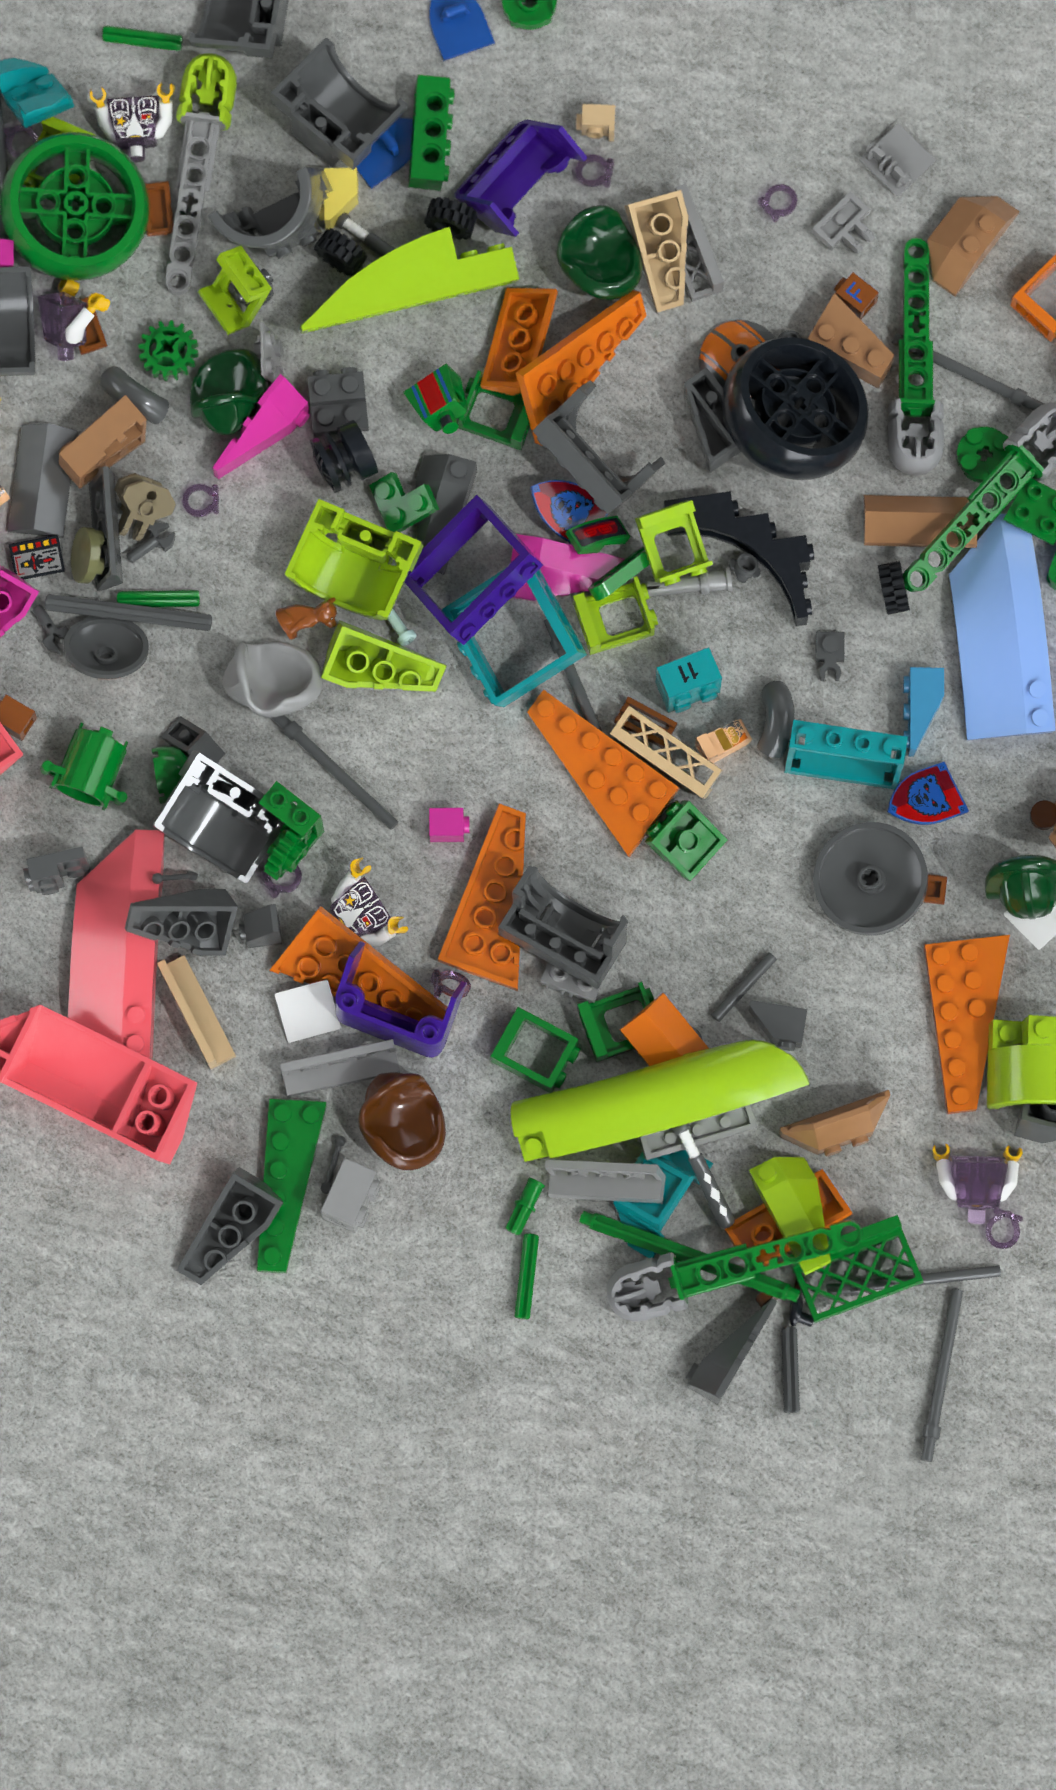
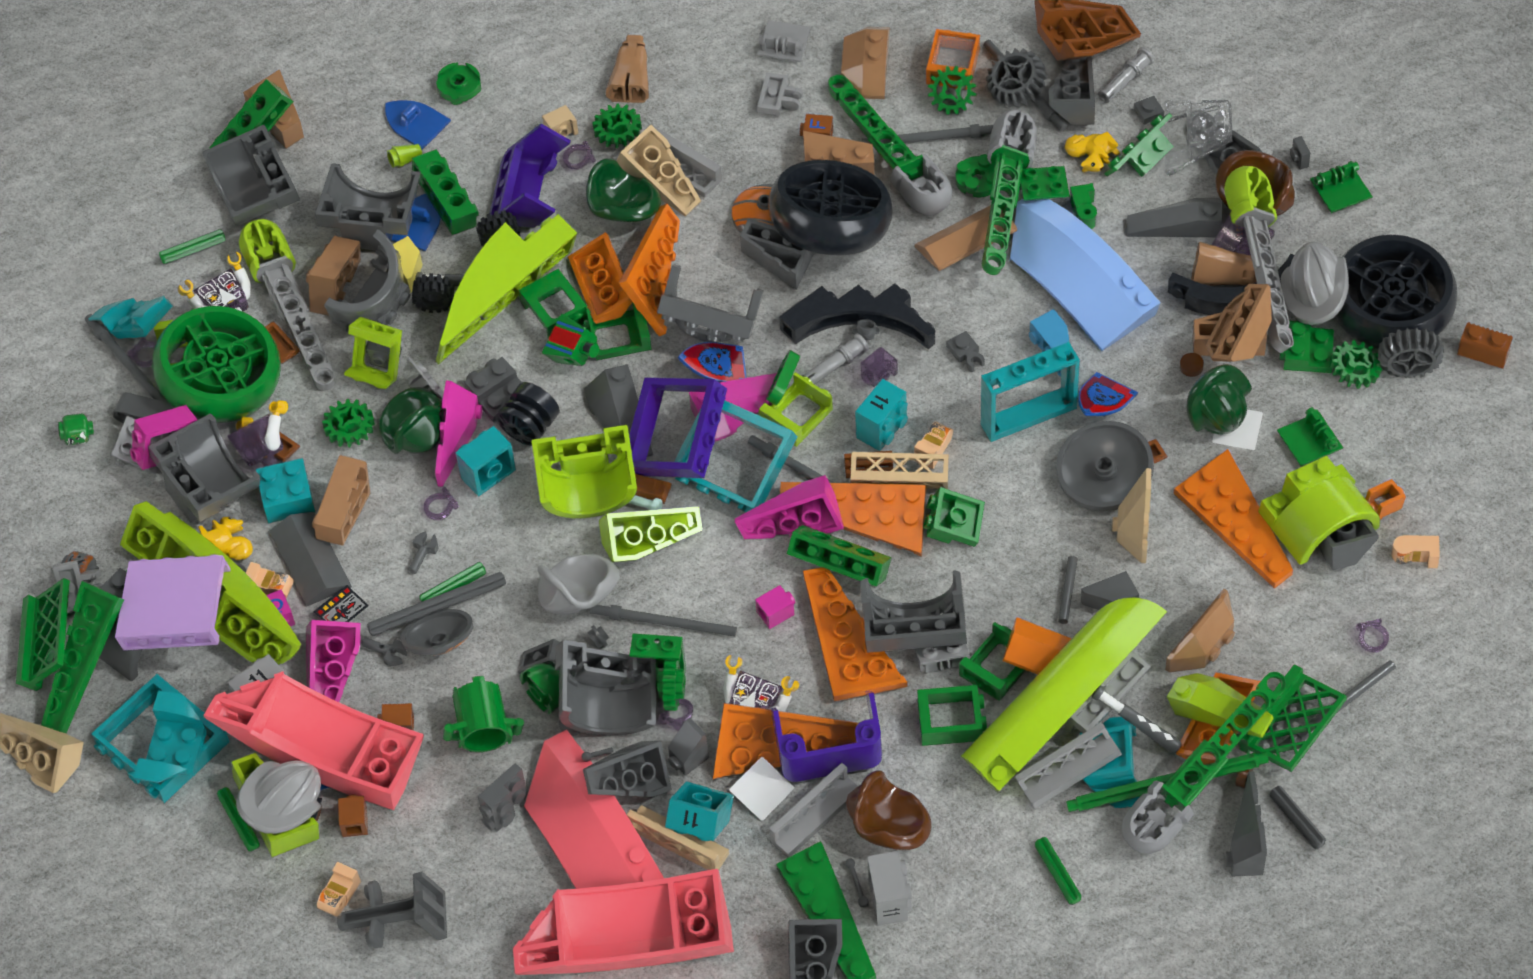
camera: 30 degrees left, 20 degrees down
(60, 391) = (285, 490): none -> teal brick
(86, 555) = (379, 581): olive tile -> none
(105, 519) = (381, 559): dark grey slope -> none
(119, 383) = (325, 461): dark grey cylinder -> none
(142, 500) = (398, 525): dark tan hinge -> none
(228, 1002) = (699, 811): none -> teal brick
(256, 162) = (332, 272): none -> medium nougat wedge
(258, 747) = (598, 636): none -> dark grey plate
(269, 484) = (485, 461): none -> teal brick
(301, 616) = (569, 533): dark orange animal -> none
(402, 509) = (602, 416): green plate -> none
(414, 611) = (652, 488): none -> dark orange tile
(418, 59) = (402, 155): none -> lime cone
(439, 988) = (847, 710): clear purple piece -> none
(454, 314) = (546, 287): none -> green window
(524, 1206) = (1020, 823): green axle -> none
(542, 735) = (806, 504): none -> dark pink wedge
(543, 810) = (839, 555): none -> green brick
(595, 534) = (746, 364): slope -> none
(658, 149) = (617, 125): none -> green gear
(666, 519) = (791, 321): lime window -> none
(709, 103) = (629, 75): none -> medium nougat piece
(726, 619) = (878, 367): none -> clear purple brick
(775, 214) = (710, 111): clear purple piece -> none
(778, 719) = (964, 405): dark grey cylinder -> none
(796, 1314) = (1272, 777): black bar -> none
(852, 961) = (1133, 518): none -> tan wedge
(893, 587) = (980, 281): black tyre -> none
(931, 1430) = (1428, 794): dark grey bar -> none
(977, 1180) = (1329, 612): clear purple torso -> none
(1024, 348) = (961, 84): none -> green gear

